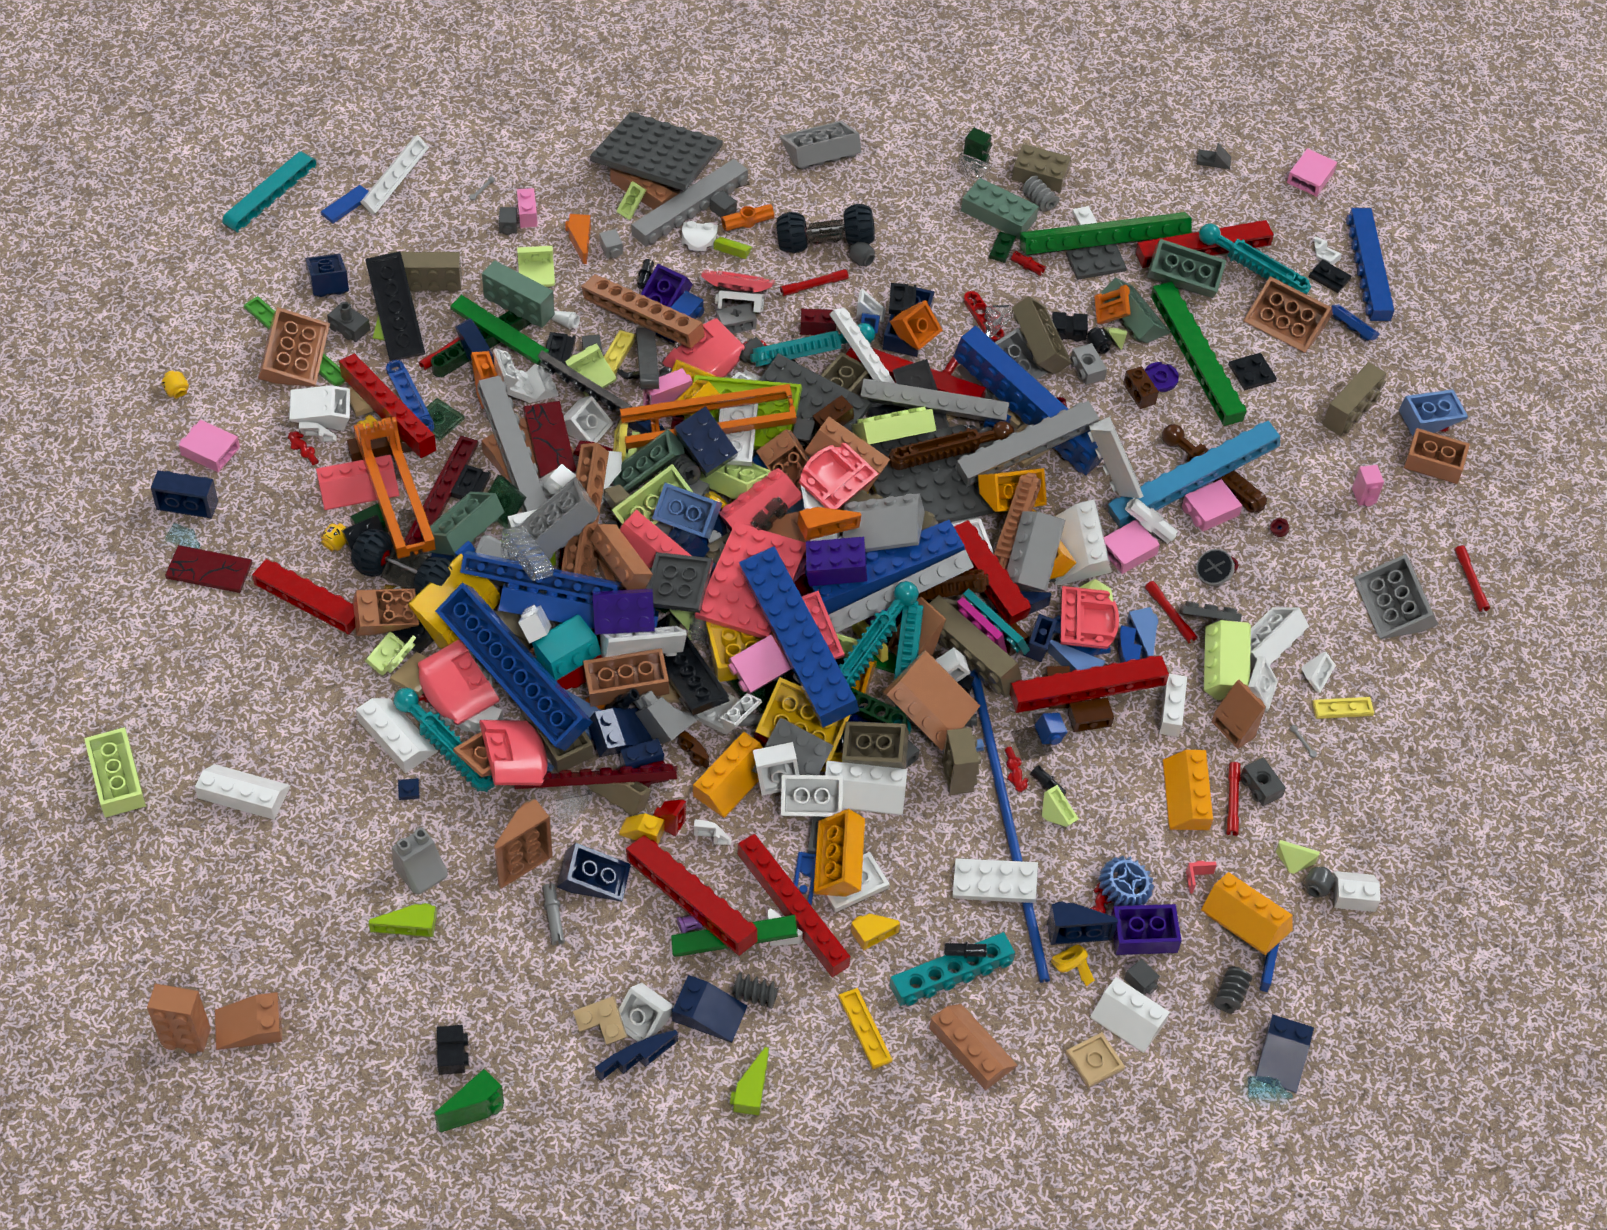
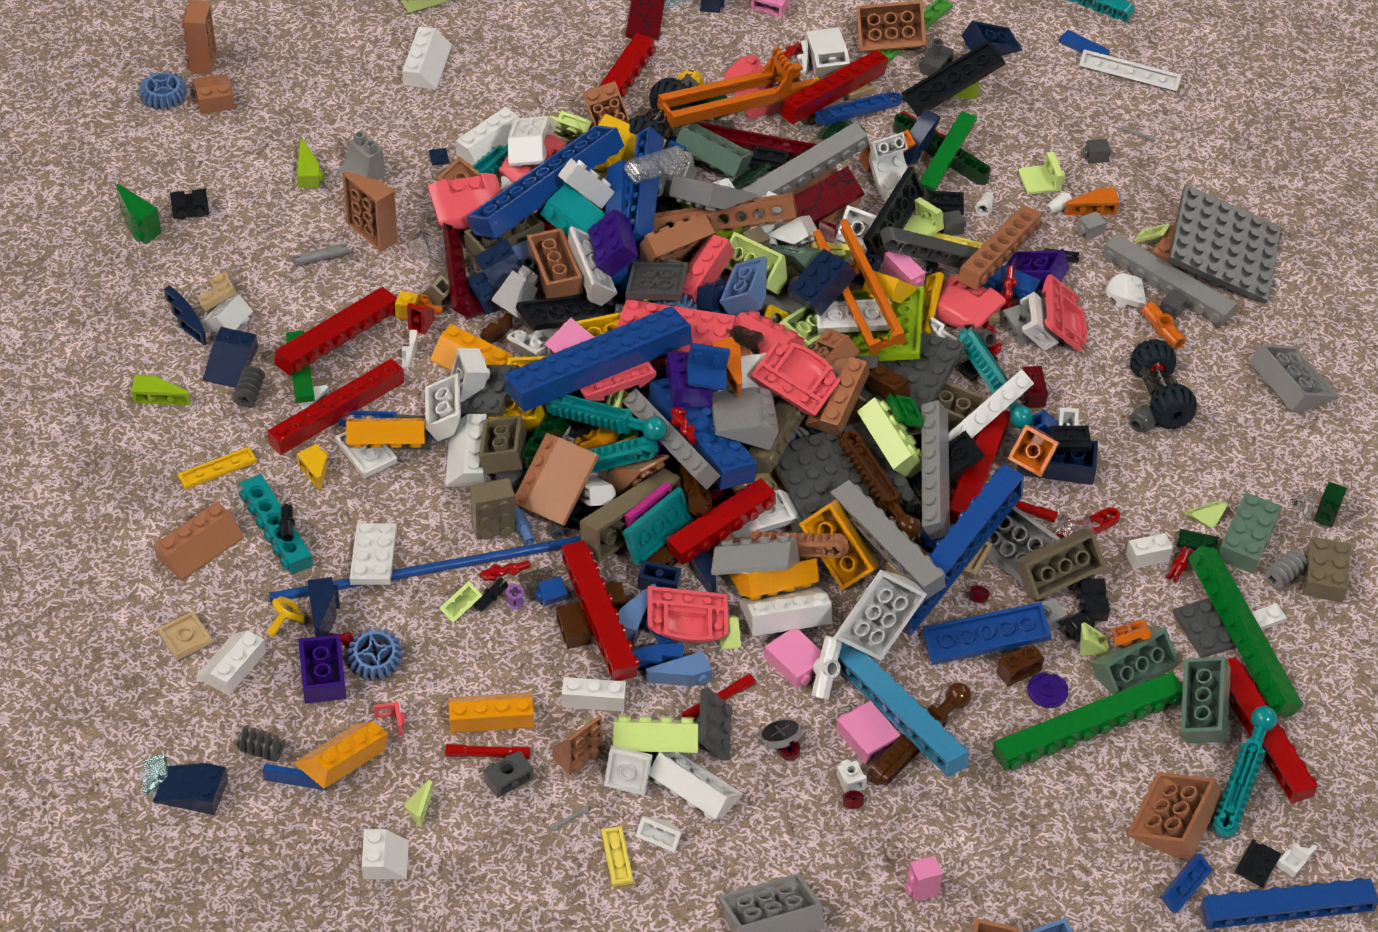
camera: 85 degrees right, 5 degrees down
(247, 1066) = (163, 92): none -> medium blue gear
(433, 271) = (1007, 99): dark tan brick -> none
(440, 675) = (527, 140): none -> white slope
(518, 294) = (985, 151): sand green brick -> none
(527, 207) = (1117, 161): bright pink brick -> none
(574, 262) = (1058, 203): none -> white cone
(593, 873) = (360, 272): dark blue slope -> none
(651, 807) = (424, 300): none -> orange arm
(690, 311) = (1008, 282): none -> red animal
(732, 247) = (1122, 318): lime slope -> none
(811, 283) = (1081, 370): red piece -> none
(849, 534) = (707, 366): none -> blue bracket
(871, 407) = (905, 410): none -> green plate
(888, 576) = (680, 420): none -> red animal
(969, 233) = (1207, 514): none -> yellowish green slope
(1017, 278) = (1149, 551): none -> white brick
(1051, 764) = (518, 597): none -> medium lavender bush
(1111, 393) = (986, 633): none -> blue plate
(1142, 977) = (271, 669): dark grey brick -> none
(1252, 371) = (1080, 778): black plate -> none
(1258, 524) = (851, 776): none -> white brick
(1319, 882) = (389, 819): dark grey head -> none
(1355, 399) = (1053, 870): dark tan brick -> none

